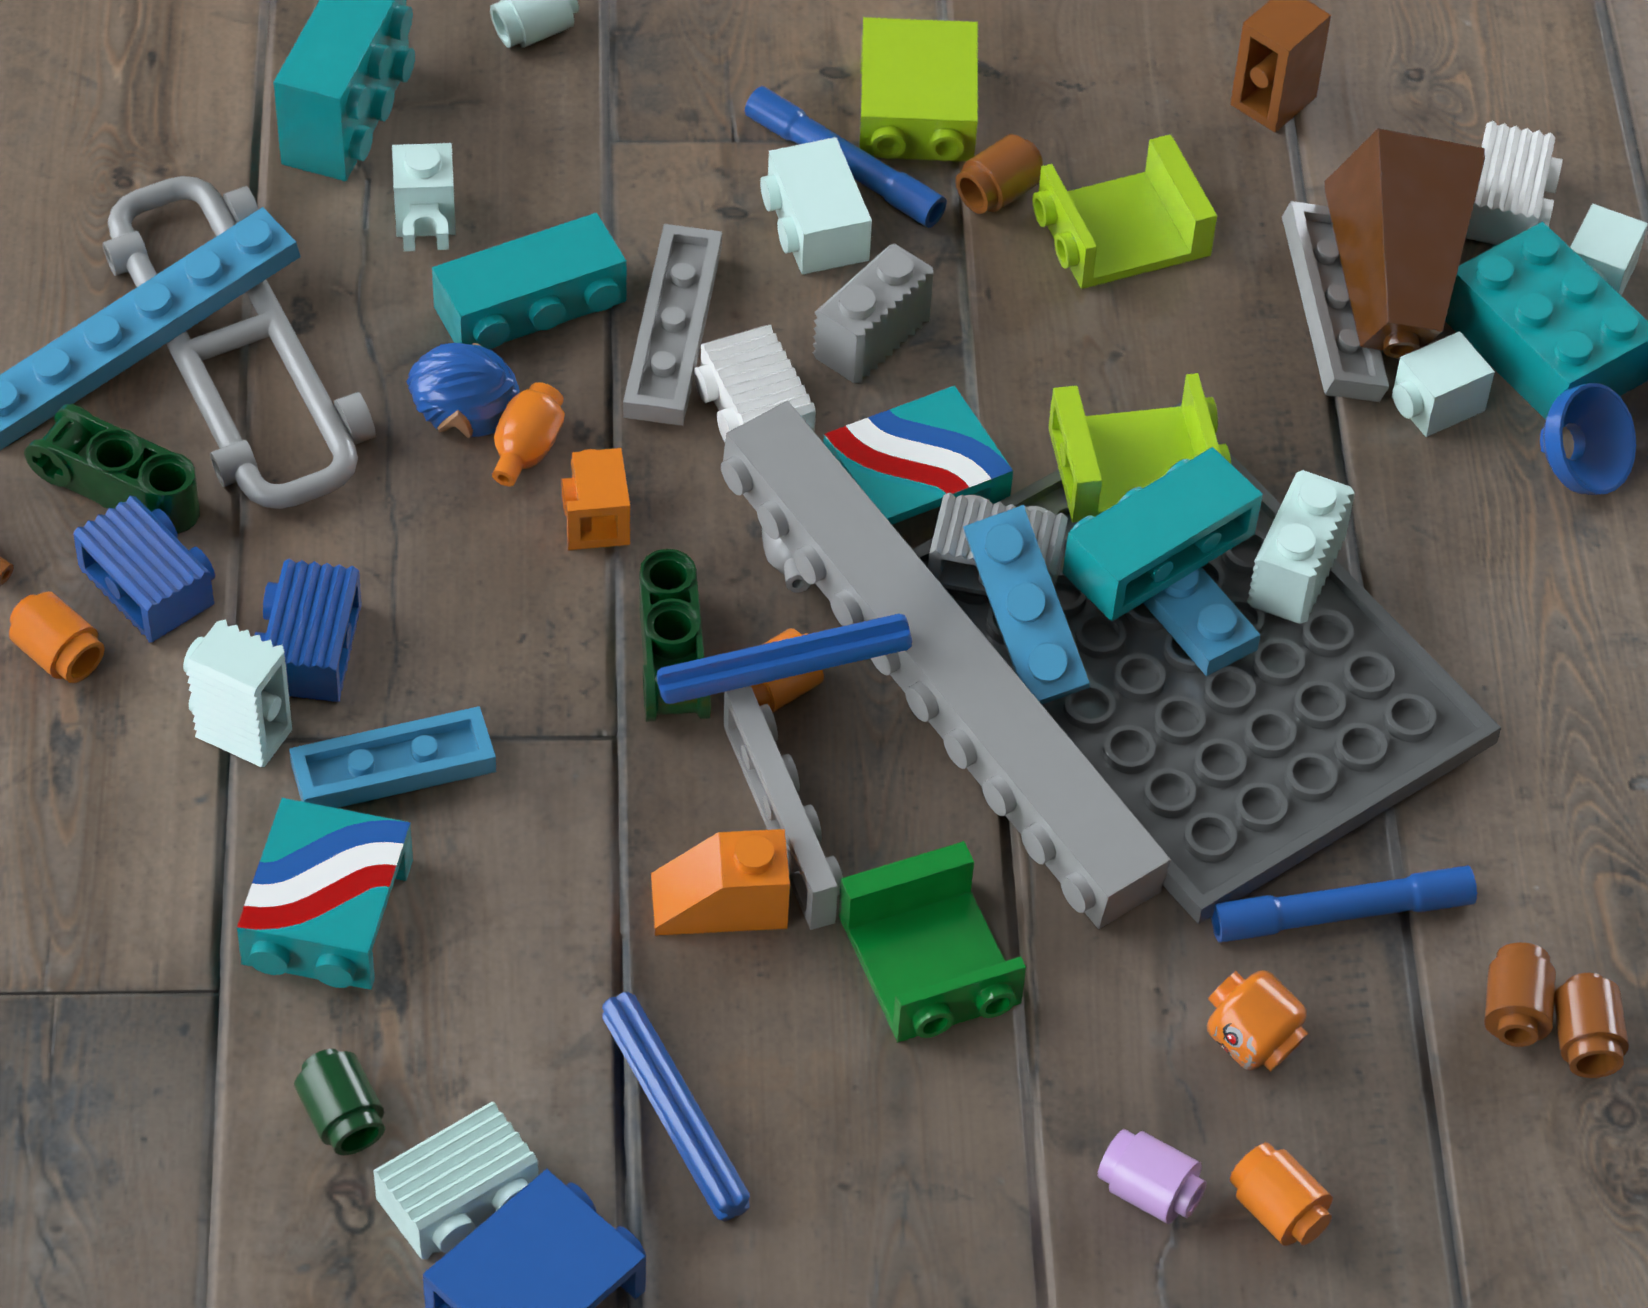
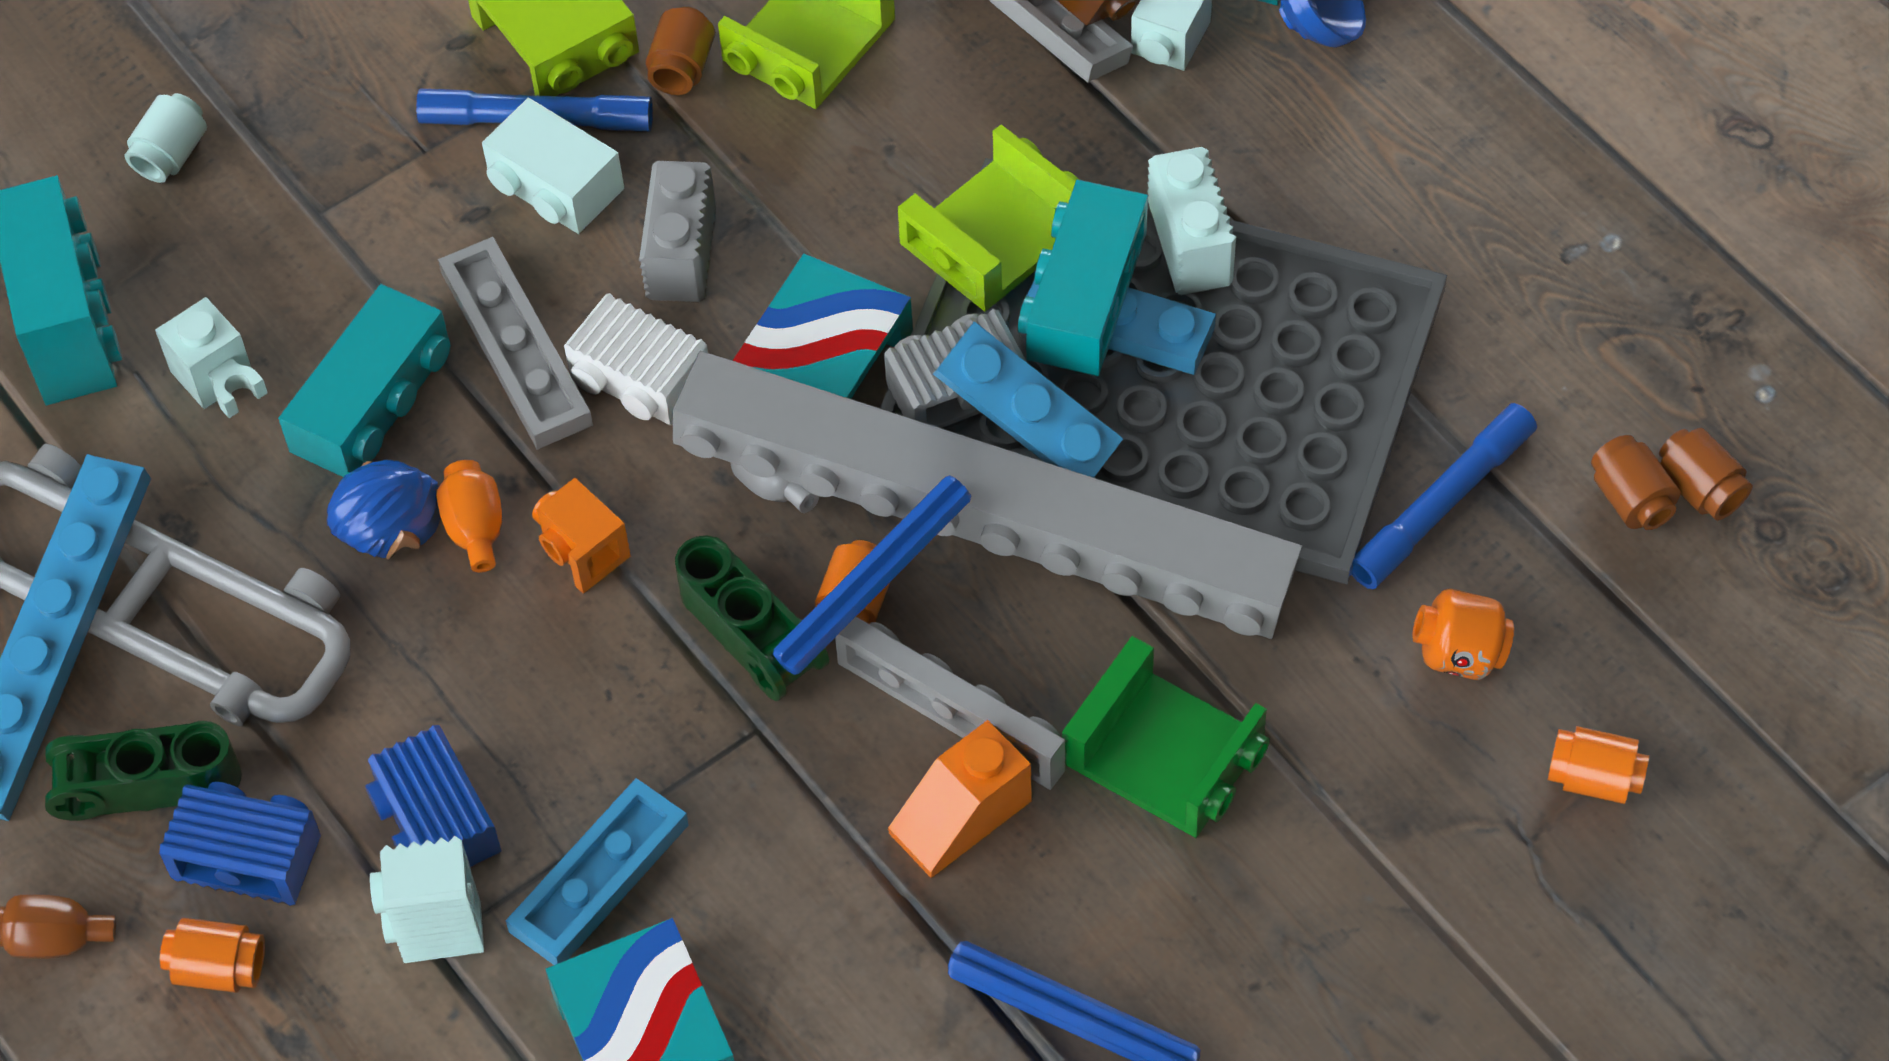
camera: 30 degrees left, 5 degrees up
(1152, 1175) = (1490, 815): lavender brick -> none

